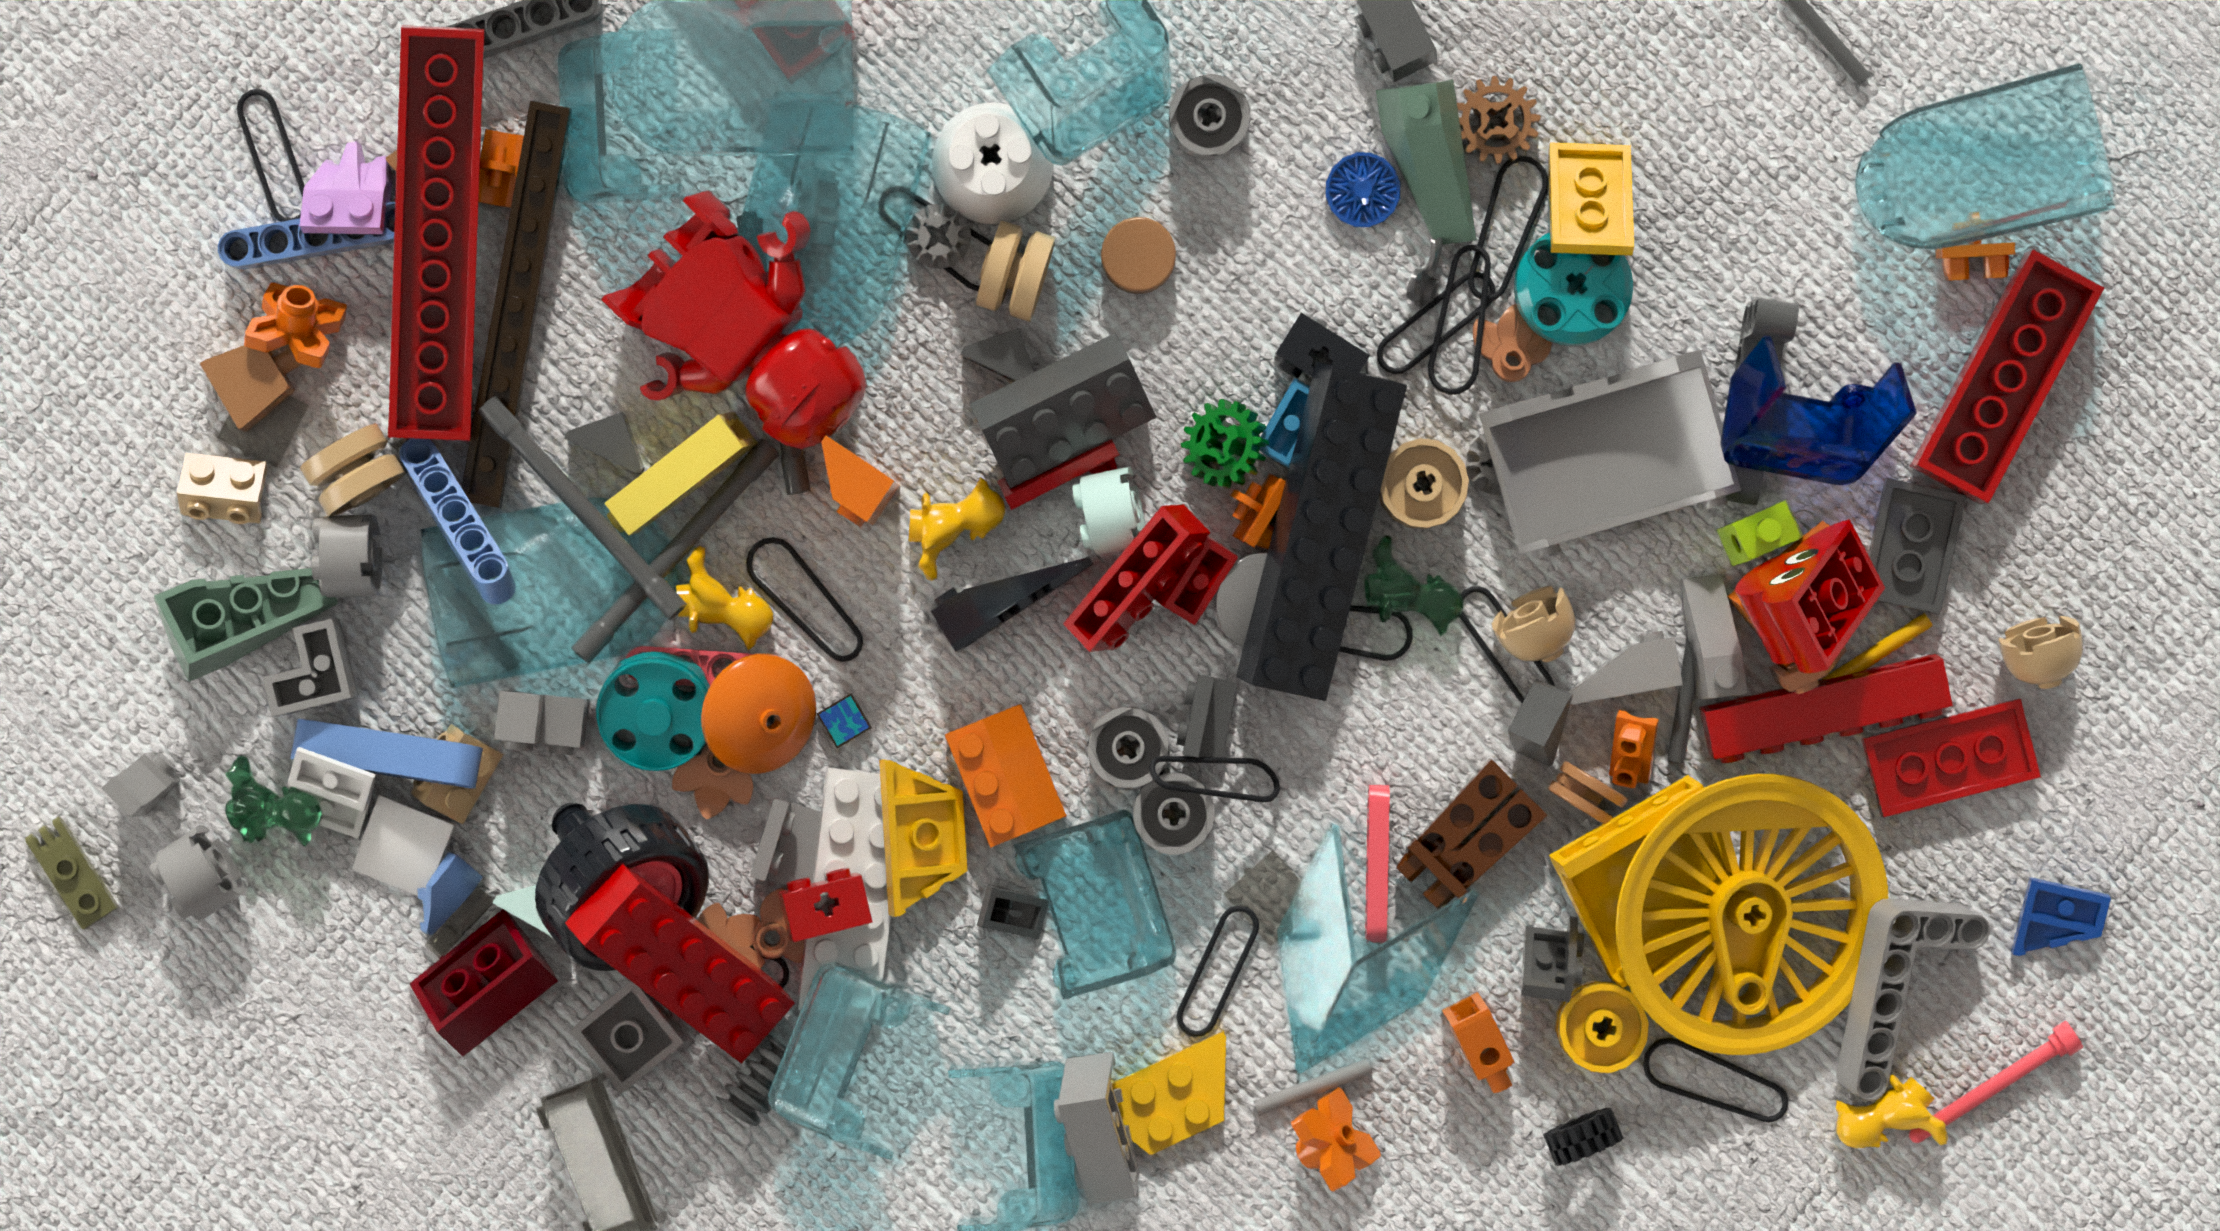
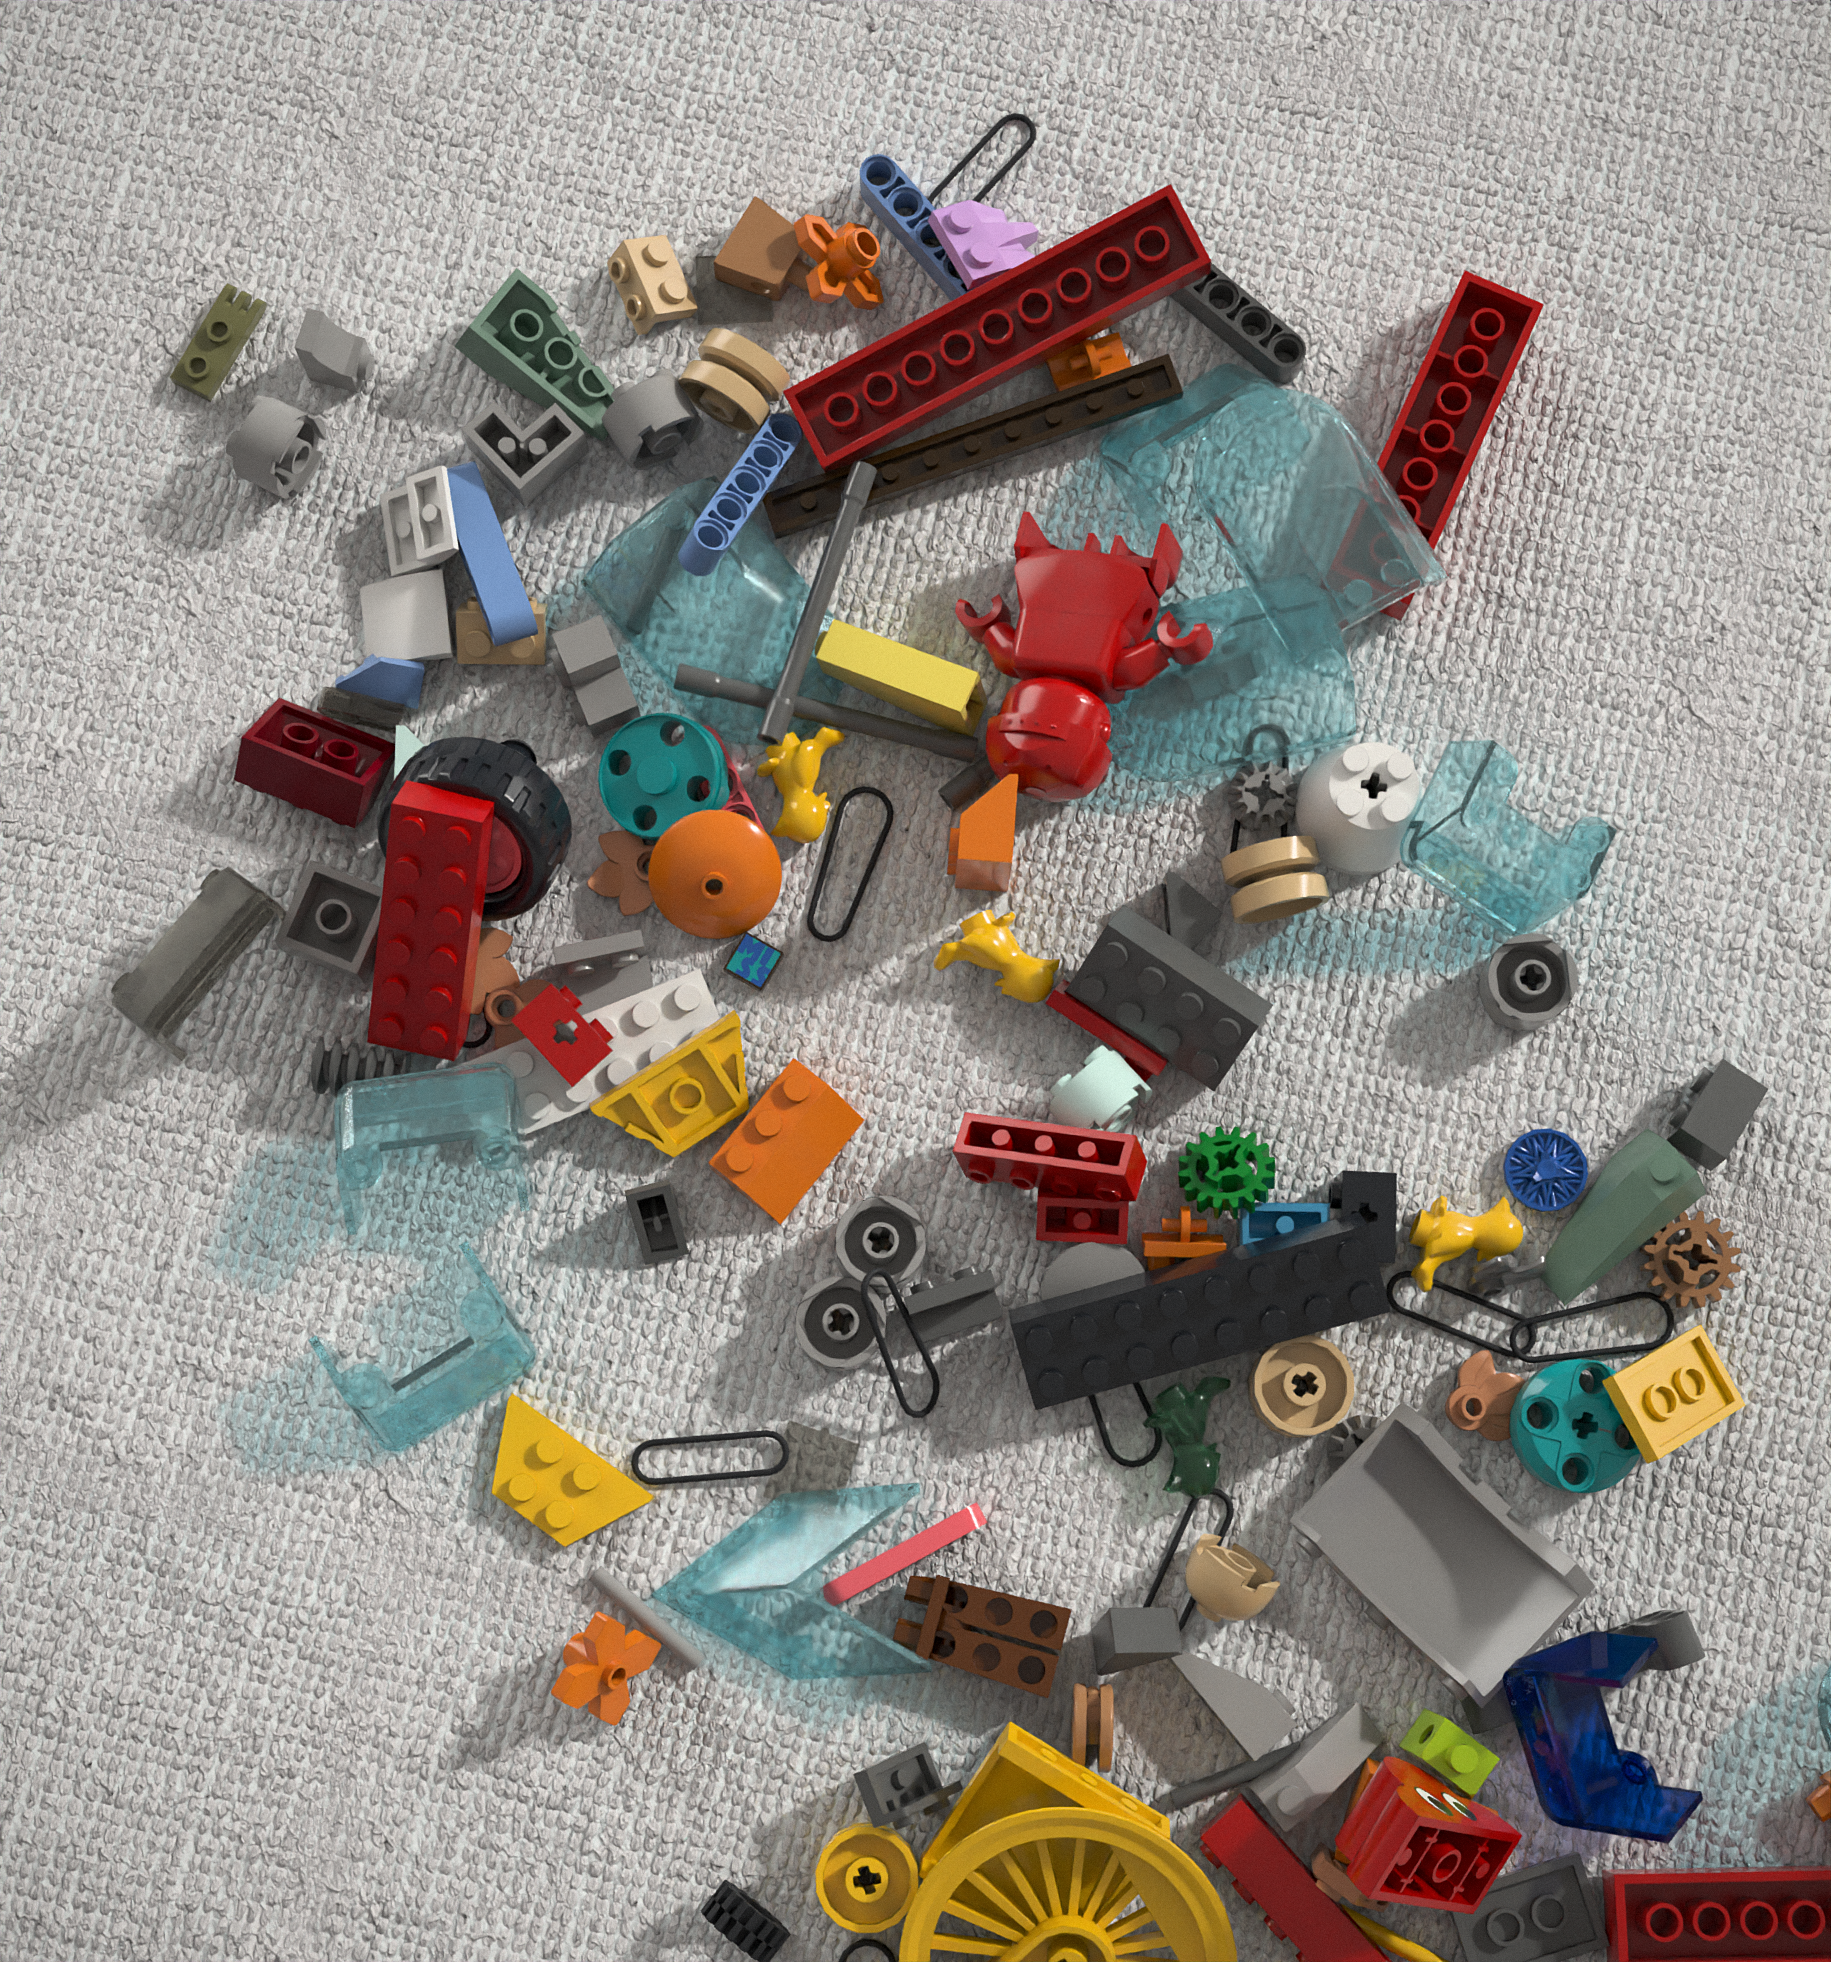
camera: 55 degrees right, 10 degrees down
(259, 808) = (370, 472): clear green animal -> none
(611, 440) = (897, 598): dark grey slope -> none
(983, 608) = (936, 1032): black wedge -> none
(1095, 1129) = (484, 1421): light grey wedge -> none
(1100, 902) = (715, 1302): clear light blue windscreen -> none
(1138, 255) = (1356, 991): medium nougat head -> none
(1371, 296) = (1449, 1234): none -> yellow animal
(1471, 381) = (1436, 1377): black piece -> none
(1475, 1032) = (791, 1750): orange torso -> none
(1633, 749) = (1162, 1748): orange hips -> none

